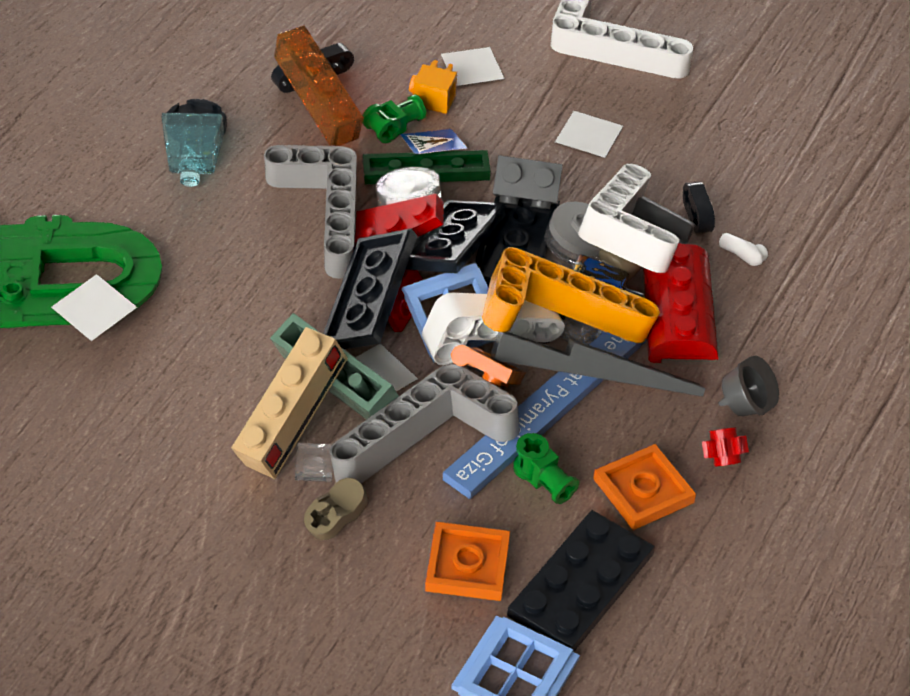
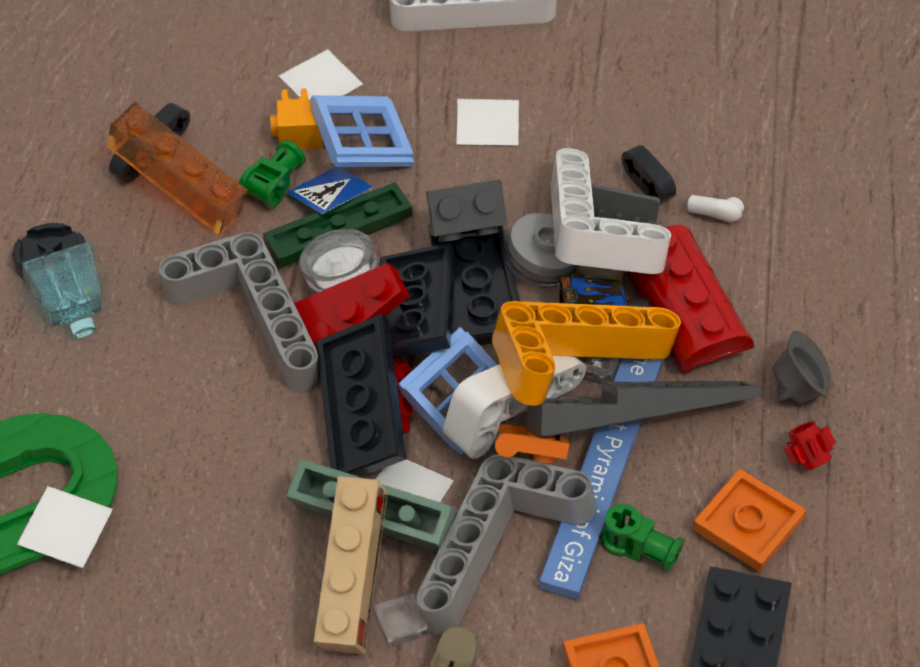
camera: 20 degrees left, 5 degrees up
(475, 124) = (367, 156): none -> light blue piece

